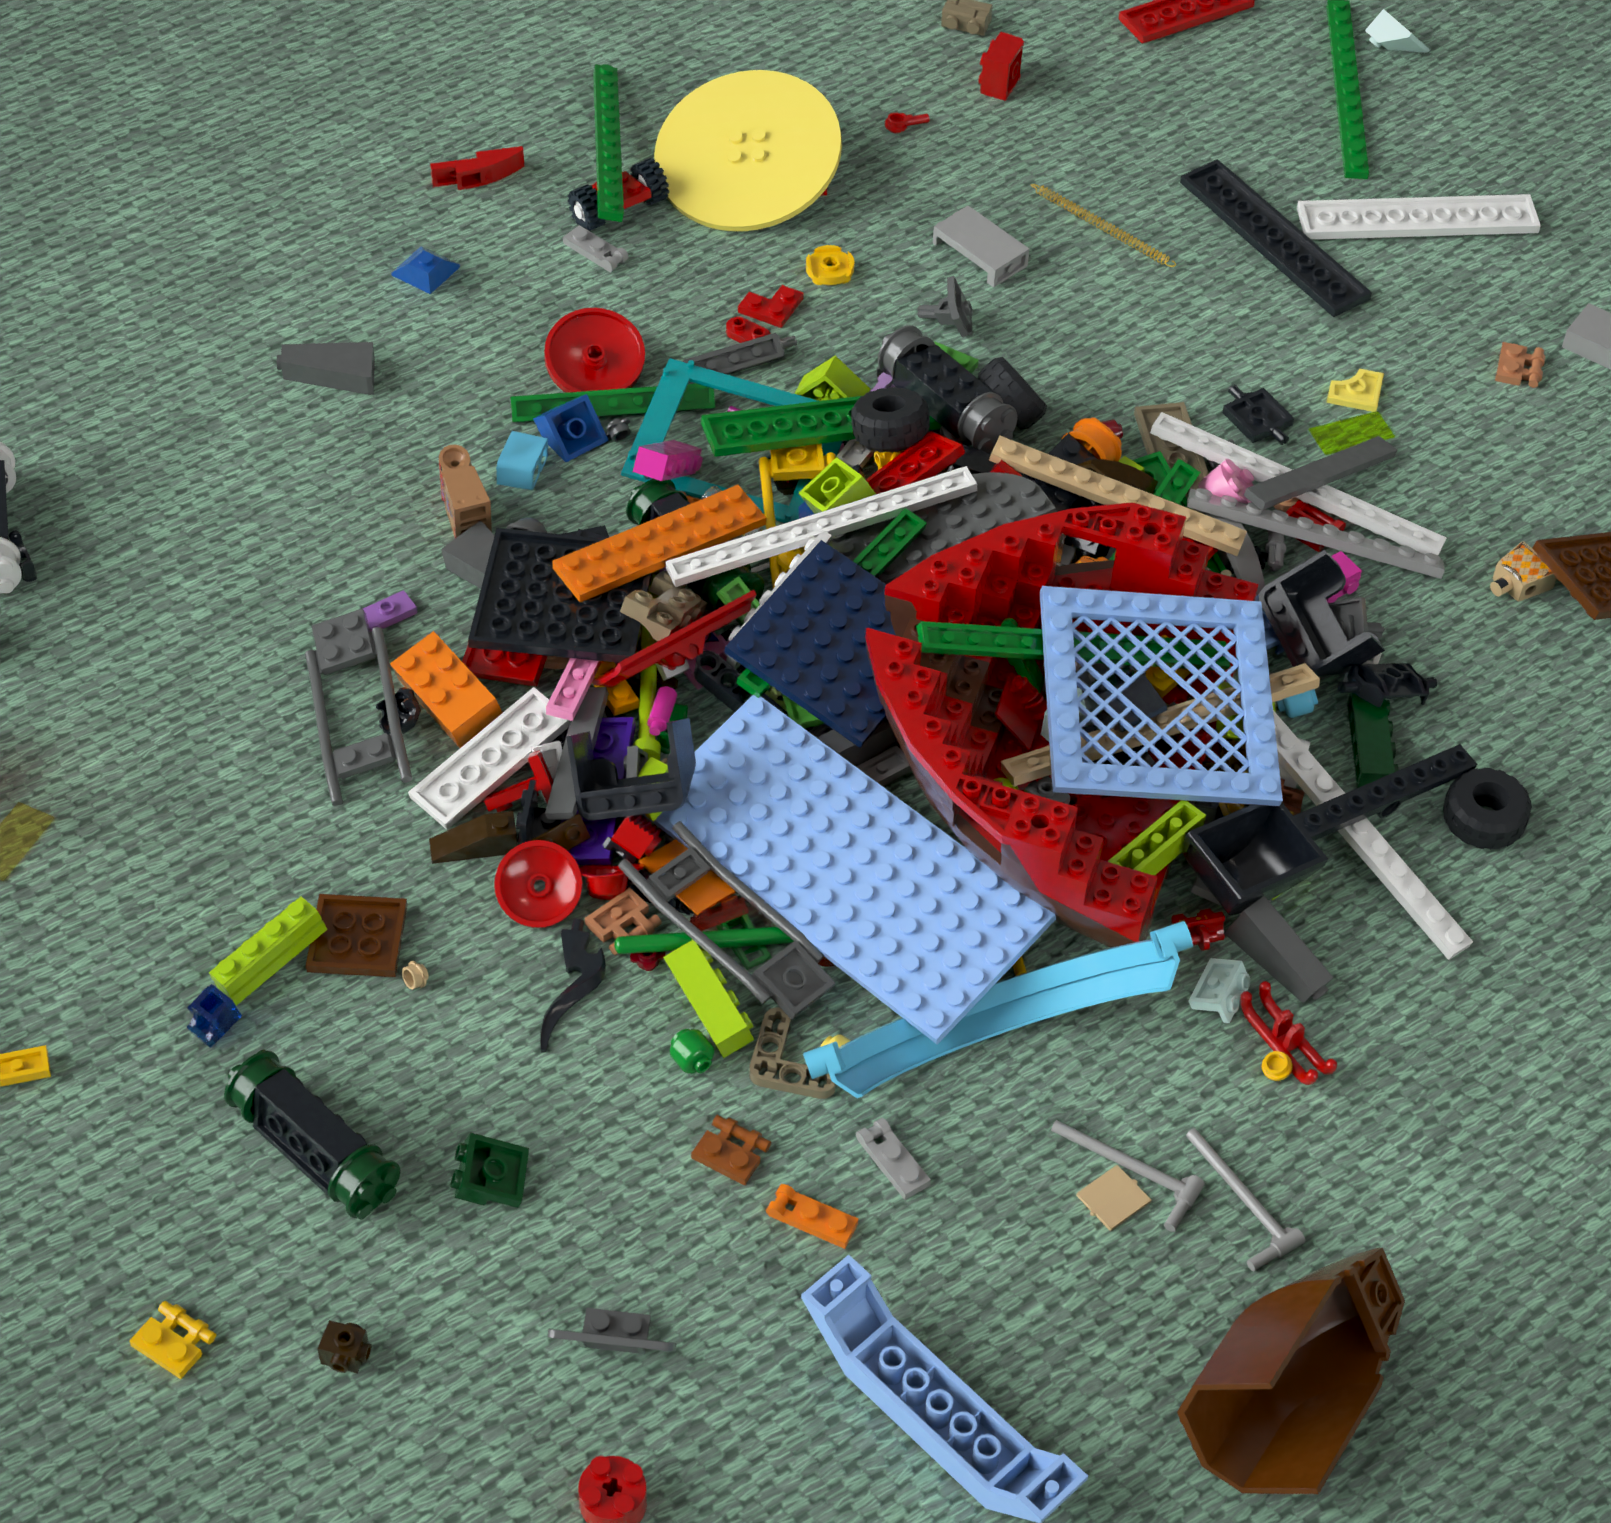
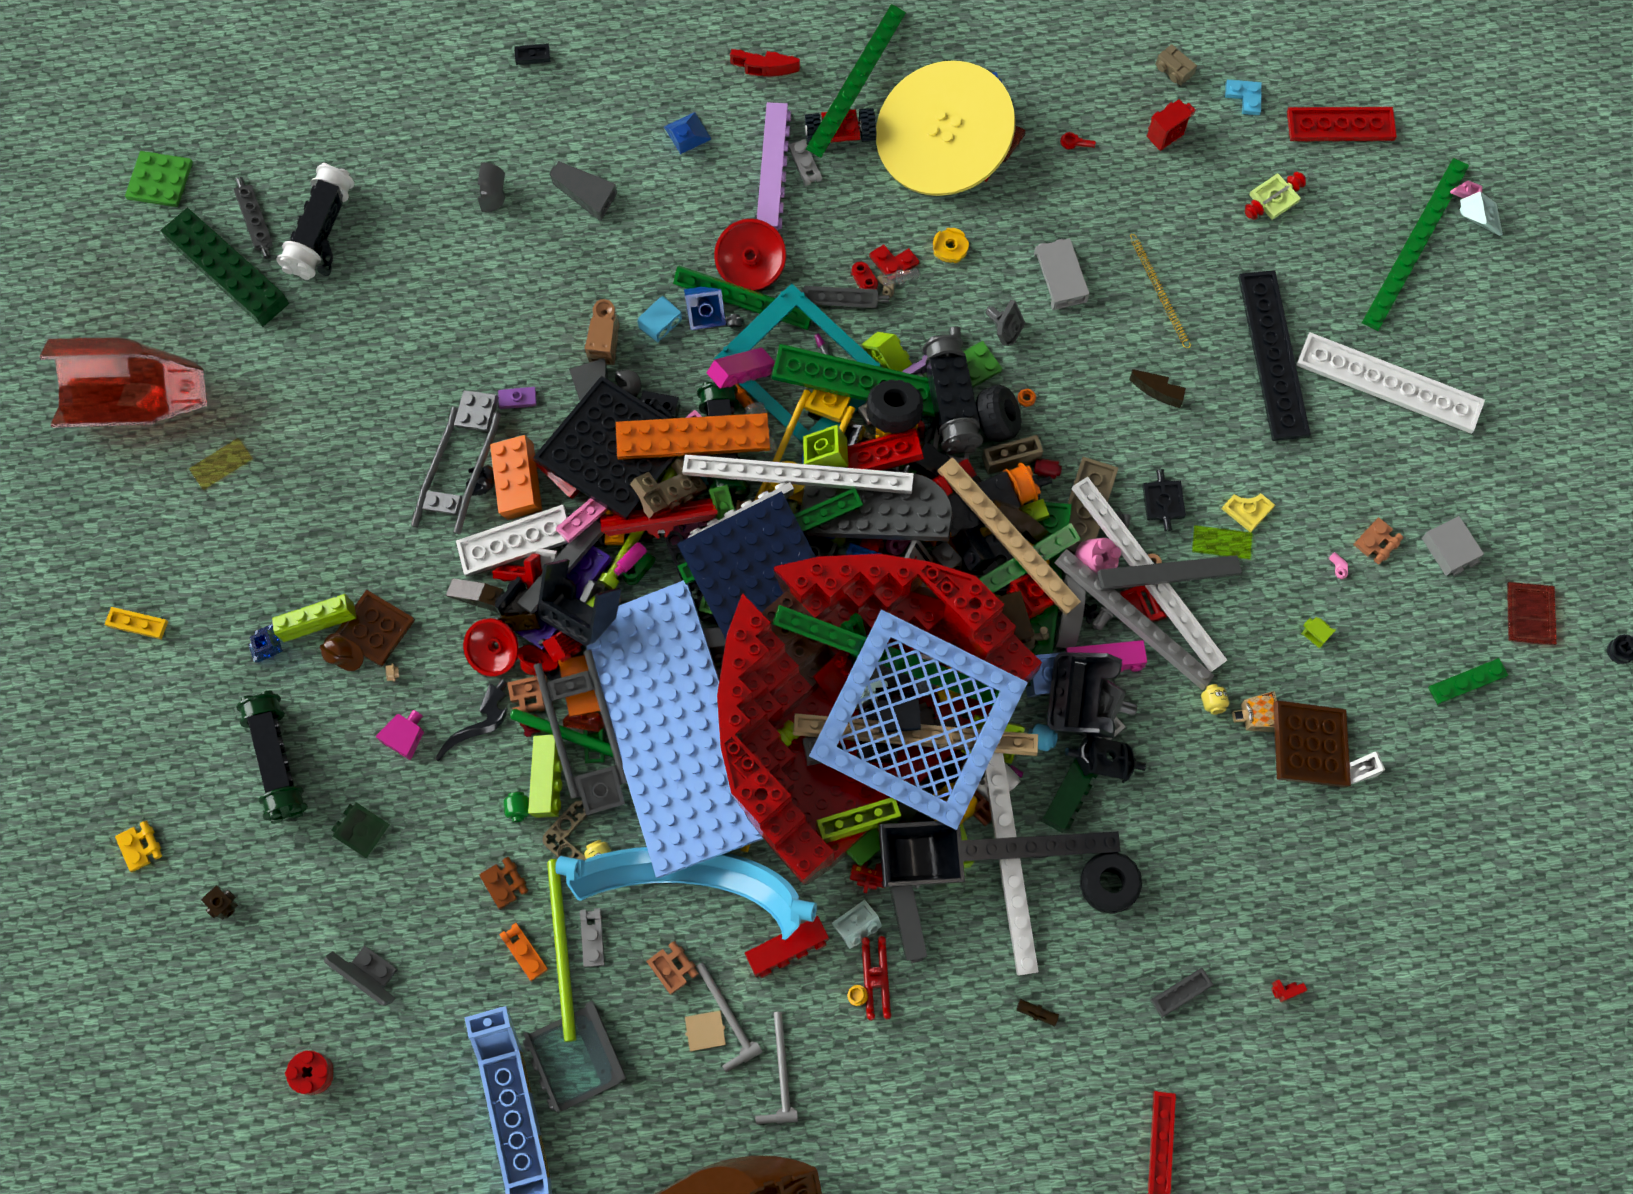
camera: 30 degrees right, 20 degrees up
(169, 256) = (532, 54): none -> black plate
(209, 401) = (491, 187): none -> dark grey brick
(330, 979) = (342, 652): none -> reddish brown piece
(477, 1038) = (402, 734): none -> dark pink torso
(554, 254) = (772, 164): none -> lavender brick
(782, 329) = (887, 290): none -> dark tan arm
(793, 313) = (900, 277): none -> clear pin
(865, 1191) = (561, 949): none -> lime piece
(970, 1303) = (575, 1068): none -> clear light blue panel
(1019, 1149) = (668, 972): none -> nougat plate
(1029, 374) = (1029, 393): none -> orange plate
(1050, 429) = (1010, 454): none -> dark tan brick
(1062, 15) = (1247, 91): none -> medium azure plate
(1152, 1051) = (779, 951): none -> red brick
(1165, 95) = (1275, 196): none -> yellowish green plate
(1171, 311) = (1158, 387): none -> dark brown slope
(1176, 890) = (865, 847): none -> bright green tile
(1362, 20) = (1466, 189): none -> bright pink tile
(1463, 579) = (1215, 699): none -> light yellow head
(1485, 986) = (1037, 1012): none -> dark brown pin
(1499, 403) = (1341, 565): none -> bright pink arm
(1522, 471) = (1317, 631): none -> lime window

